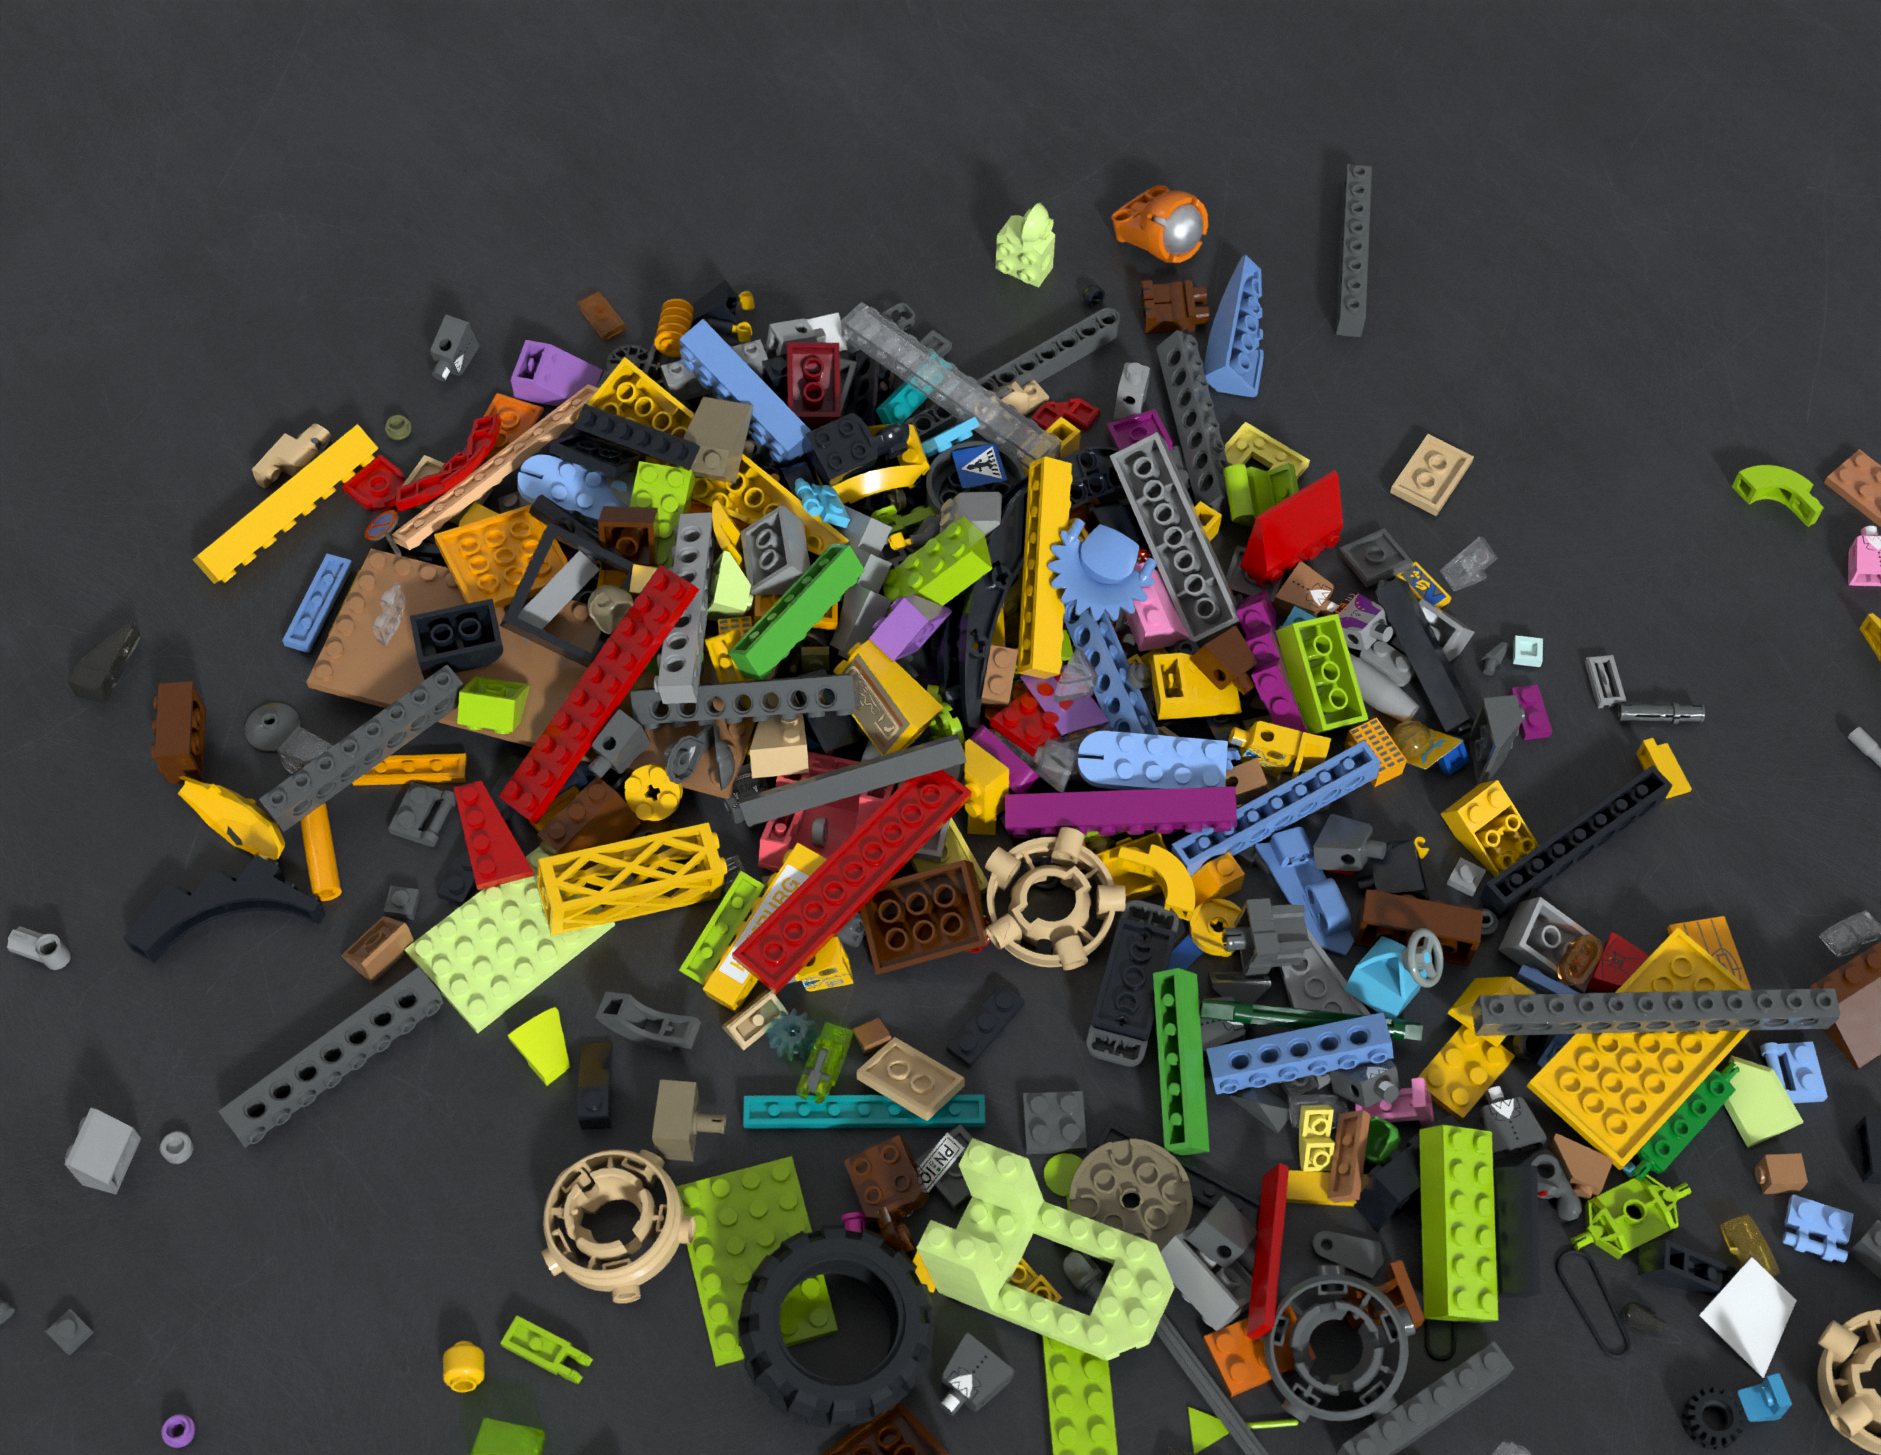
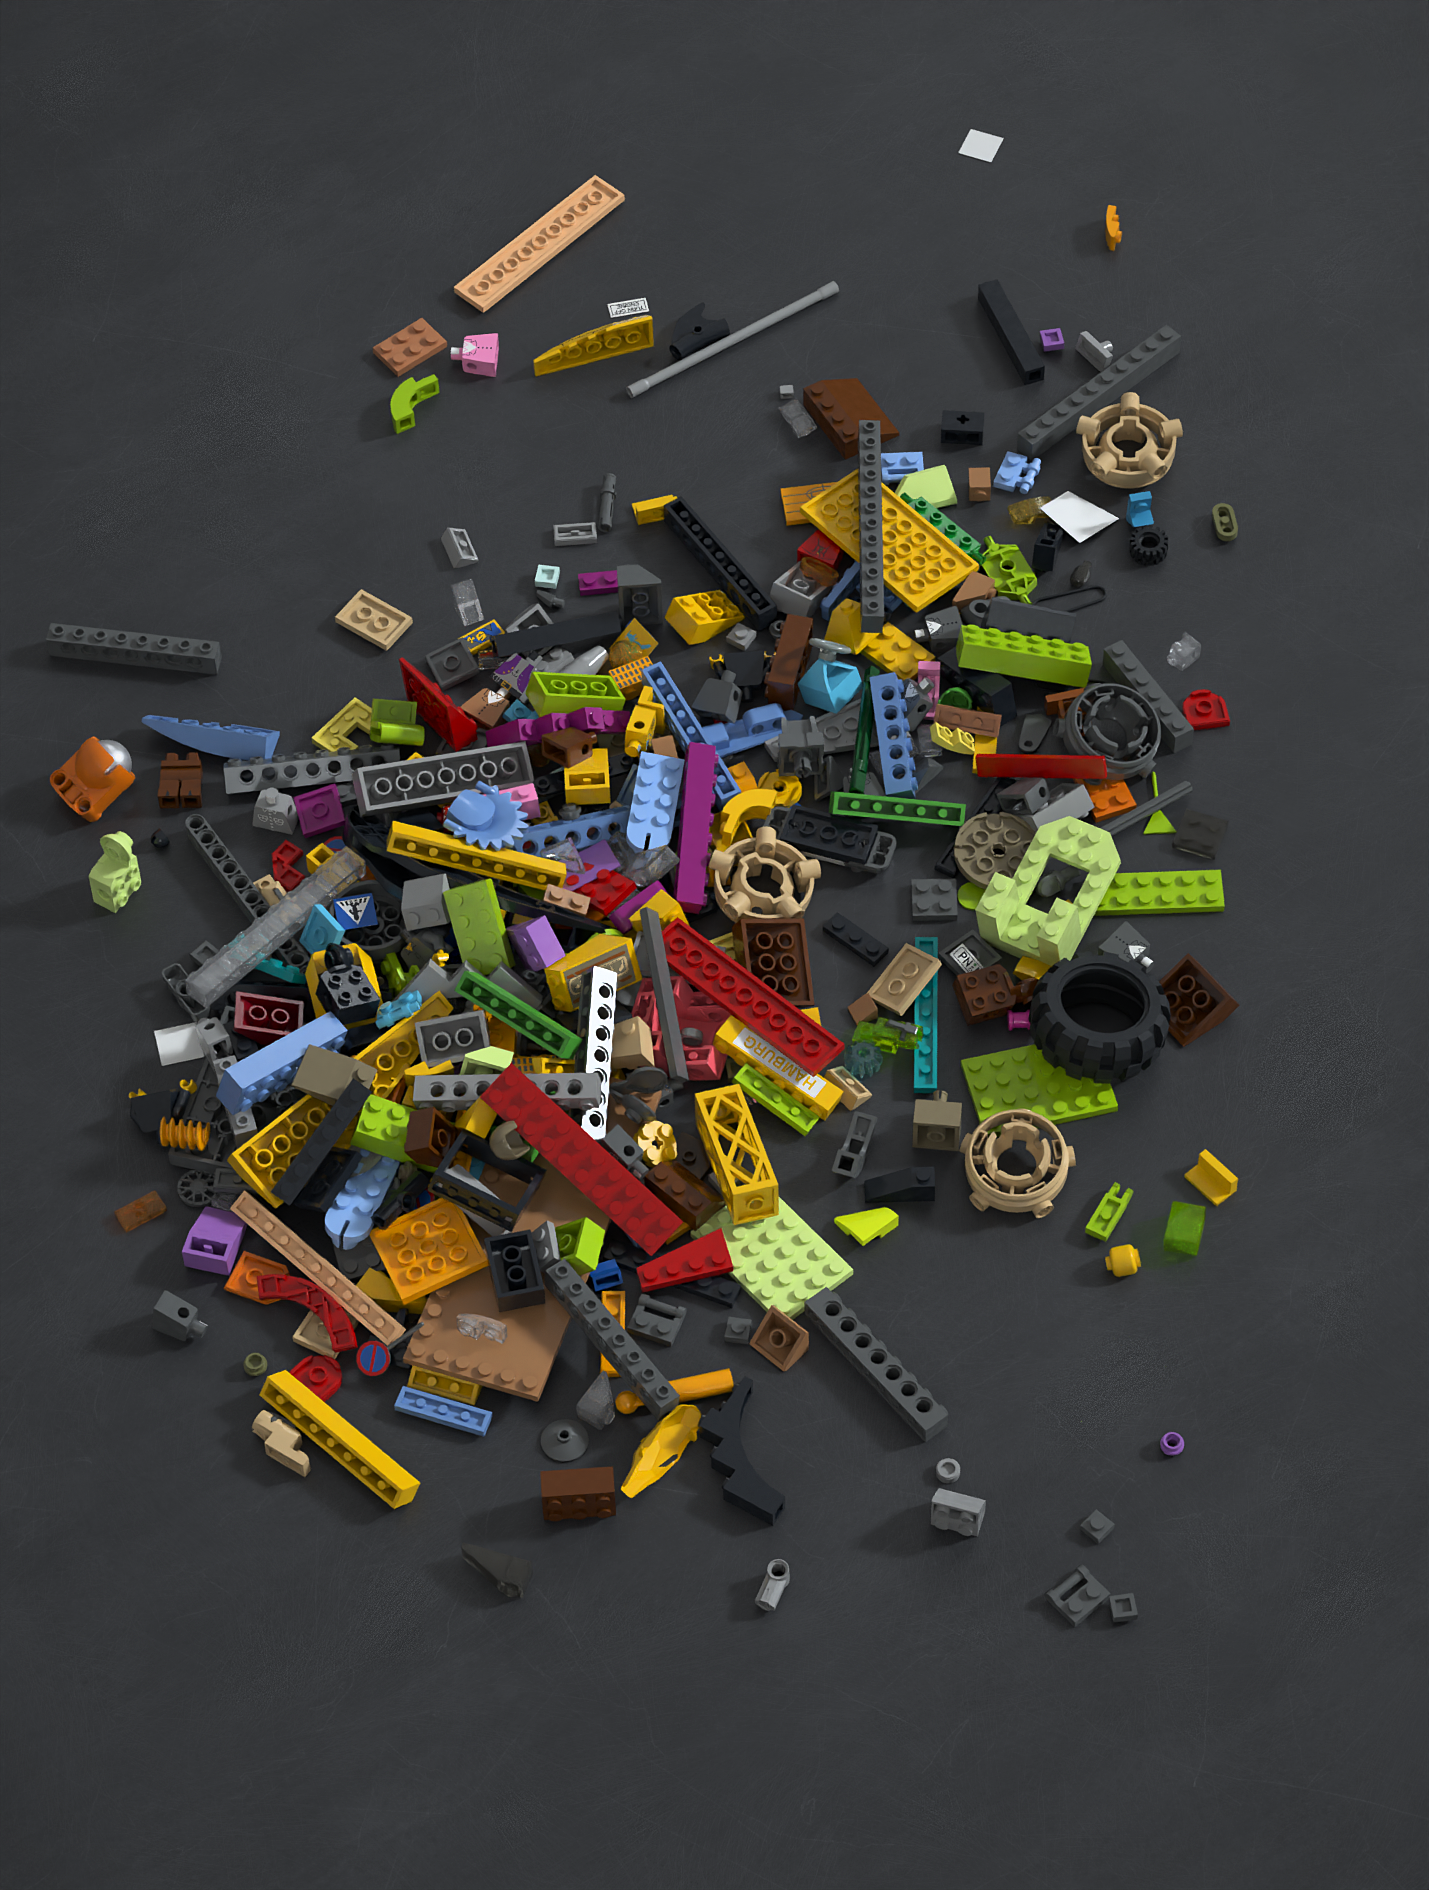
camera: 85 degrees left, 5 degrees down
(483, 672) = (546, 1245): none -> light grey plate
(485, 756) = (606, 1275): none -> blue piece
(1562, 559) = (459, 547): none -> light grey slope

